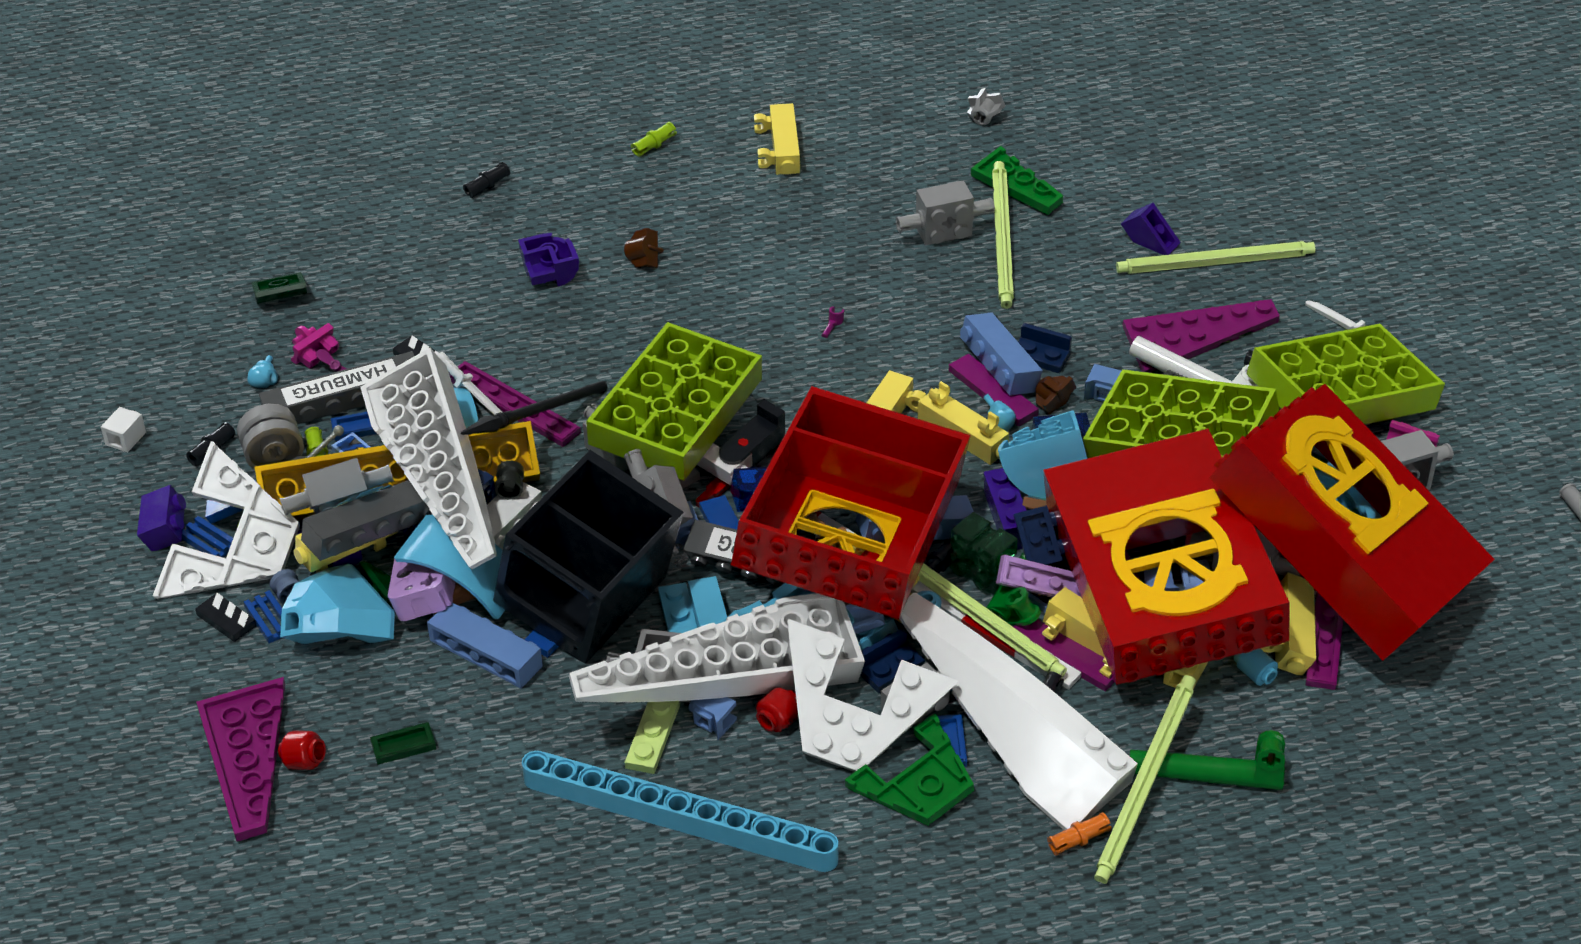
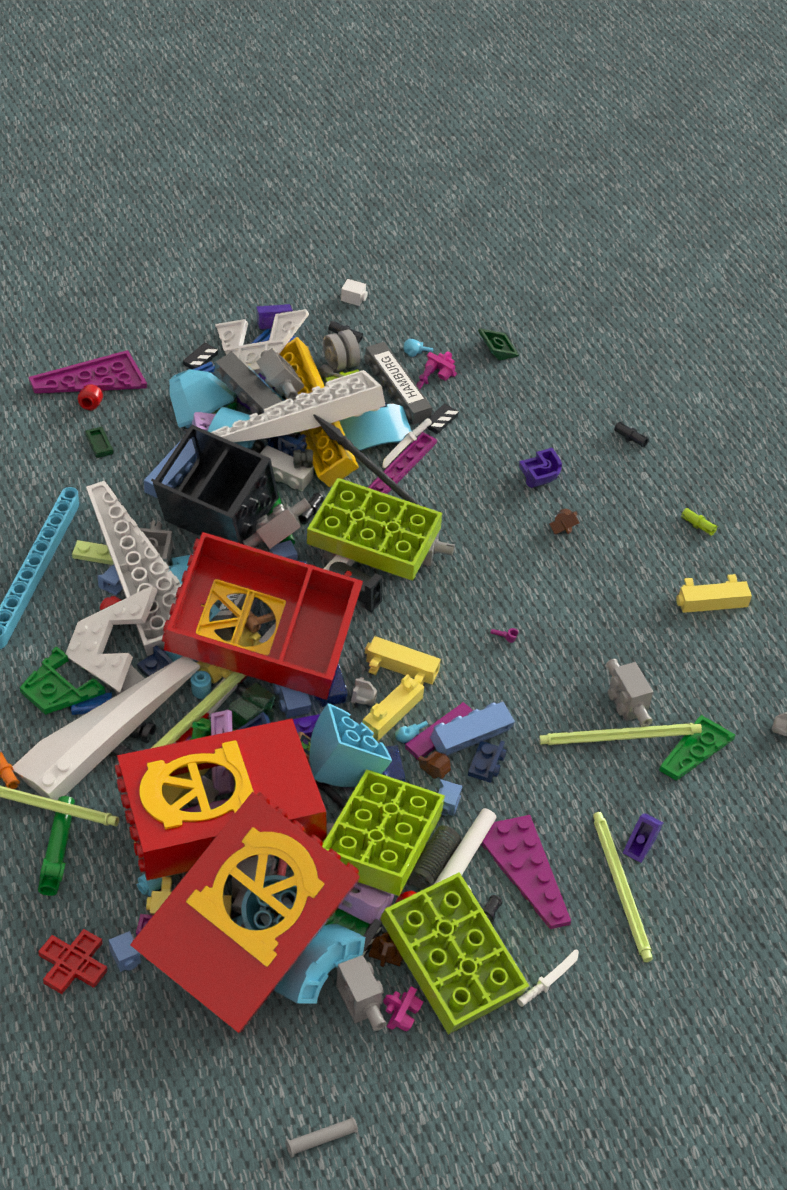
camera: 80 degrees right, 5 degrees up
(1370, 691) = (124, 954): none -> medium blue brick
(1389, 747) = (72, 961): none -> red plate

